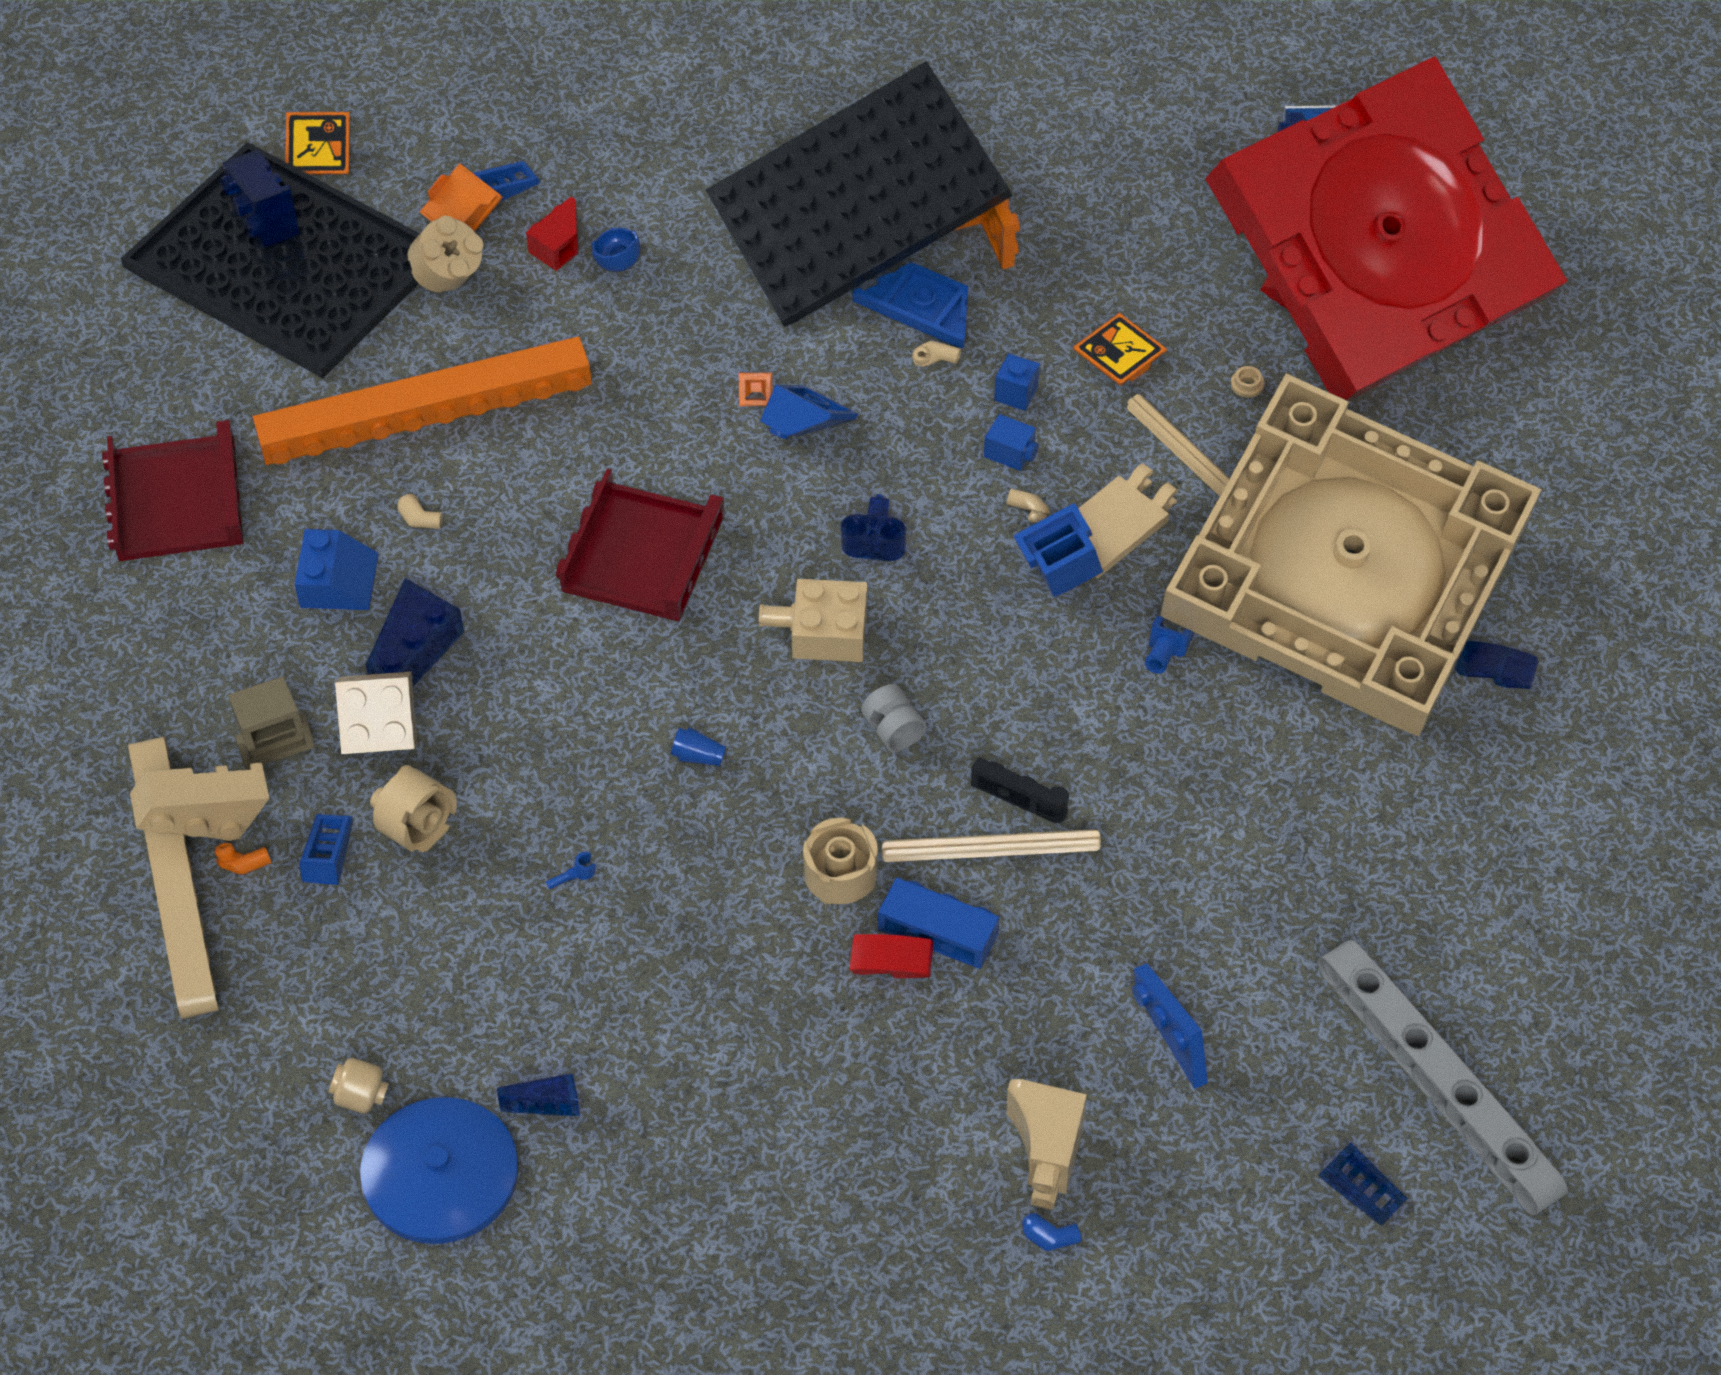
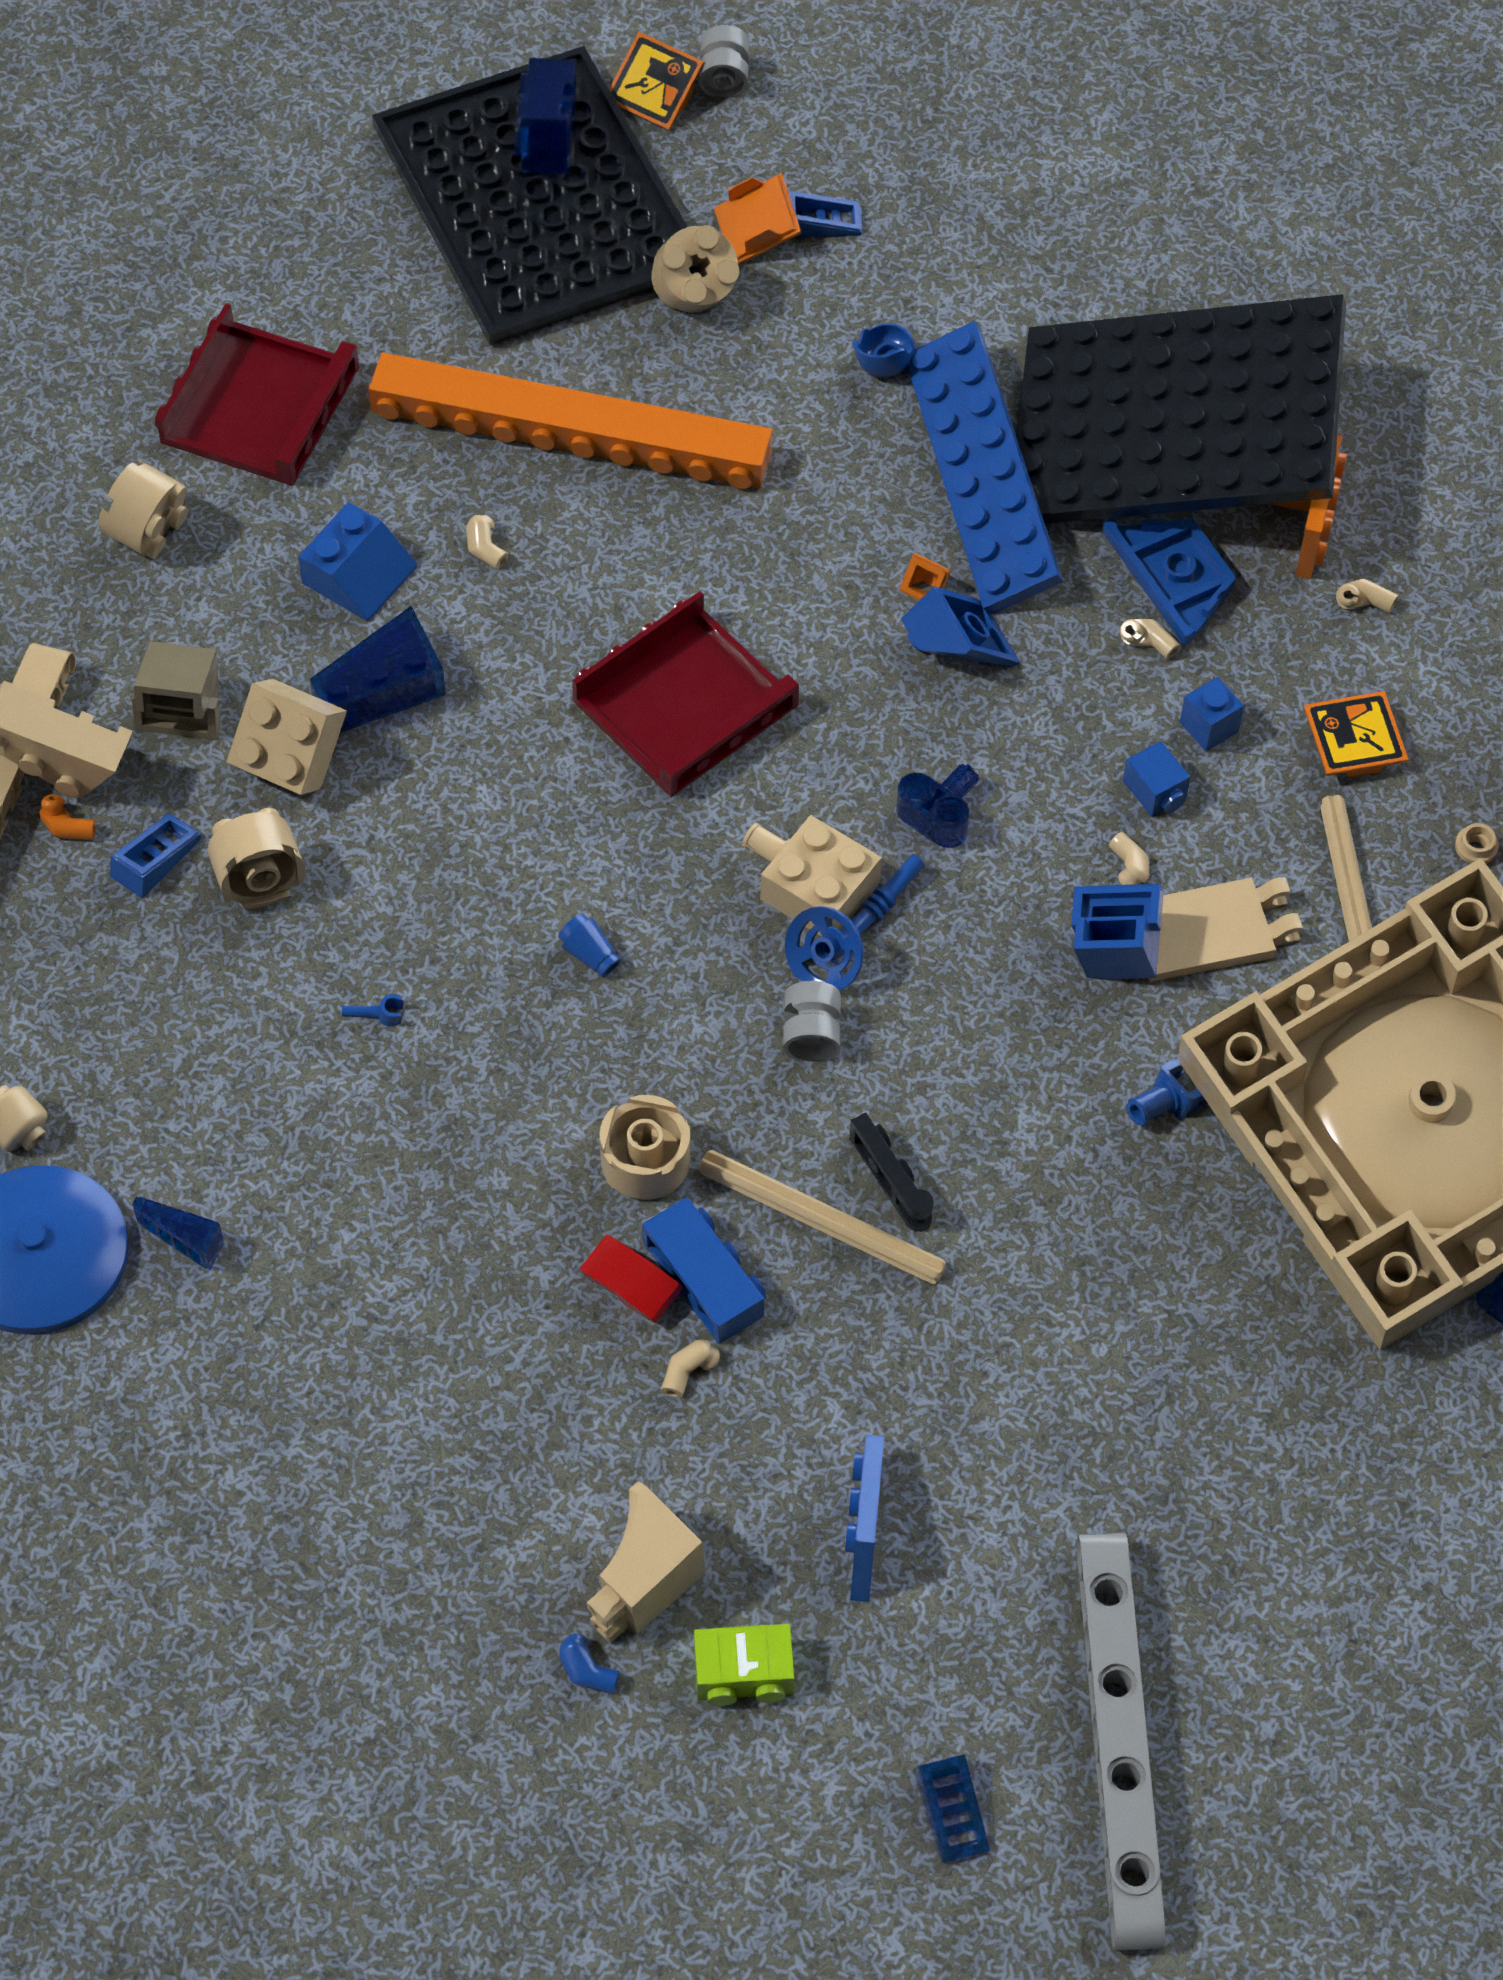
camera: 30 degrees right, 5 degrees up
(149, 608) = (143, 508): none -> tan brick
(365, 110) = (726, 60): none -> light grey wheel
(555, 236) = (834, 303): red slope -> none
(744, 296) = (983, 469): none -> blue plate
(871, 654) = (838, 942): none -> blue dish
(968, 991) = (686, 1360): none -> tan arm
(1058, 257) = (1365, 593): none -> tan arm
(1158, 1168) = (744, 1663): none -> lime brick

